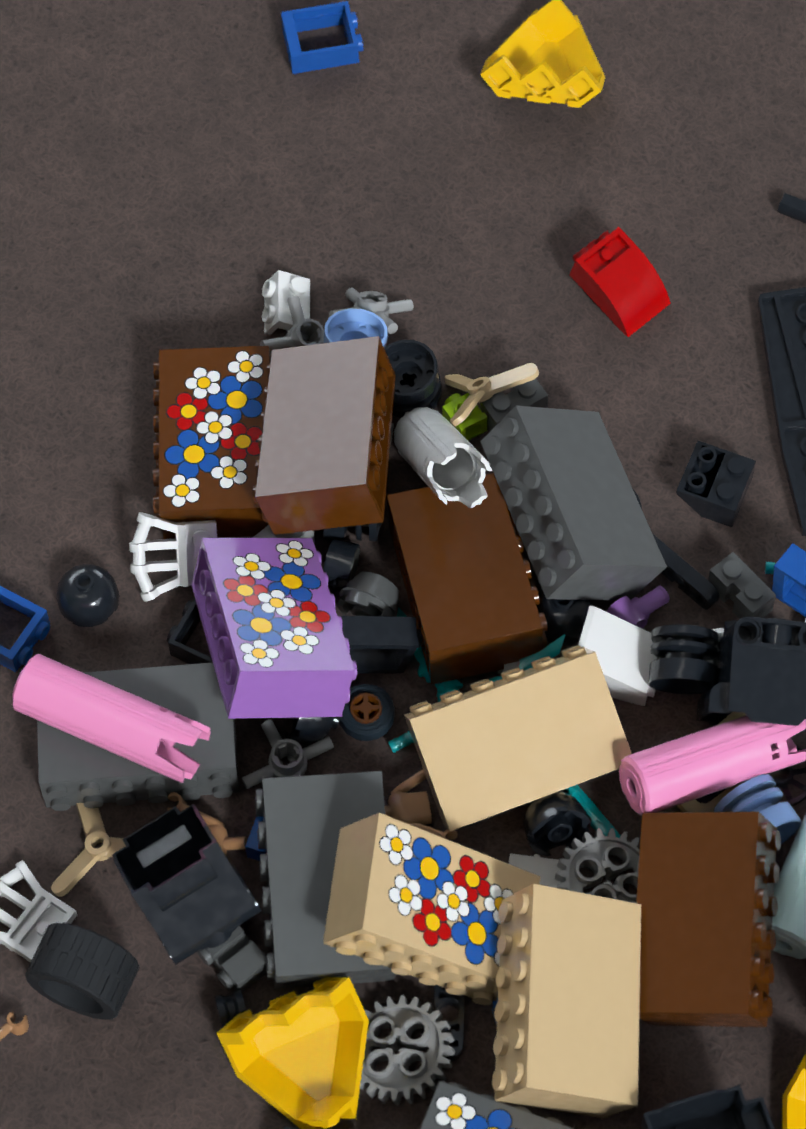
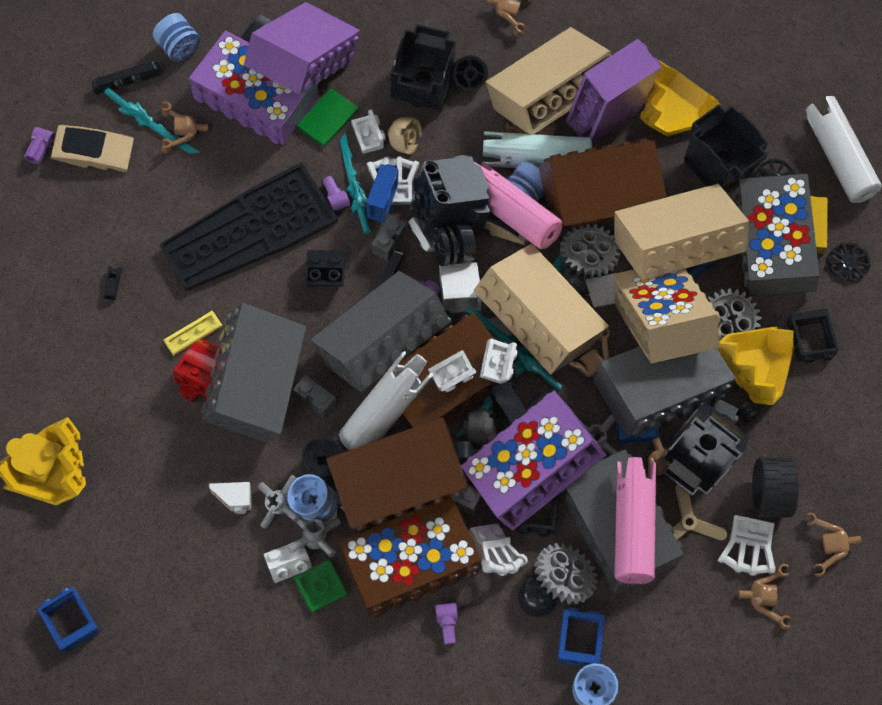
camera: 115 degrees left, 5 degrees up
(111, 469) = (447, 619): none -> medium lavender pin
(113, 609) = (566, 573): none -> light grey gear
(232, 326) = (320, 586): none -> green tile
(407, 265) = (233, 495): none -> white slope
(444, 622) = (498, 361): none -> white bracket
(453, 559) = (452, 371): none -> white bracket
(475, 422) = (338, 420): lime brick -> none
(484, 387) = (324, 412): tan piece -> none
(567, 46) = (33, 455): none -> yellow plate
(574, 321) = (253, 373): none -> dark grey brick
(684, 291) = (193, 332): none -> light yellow tile

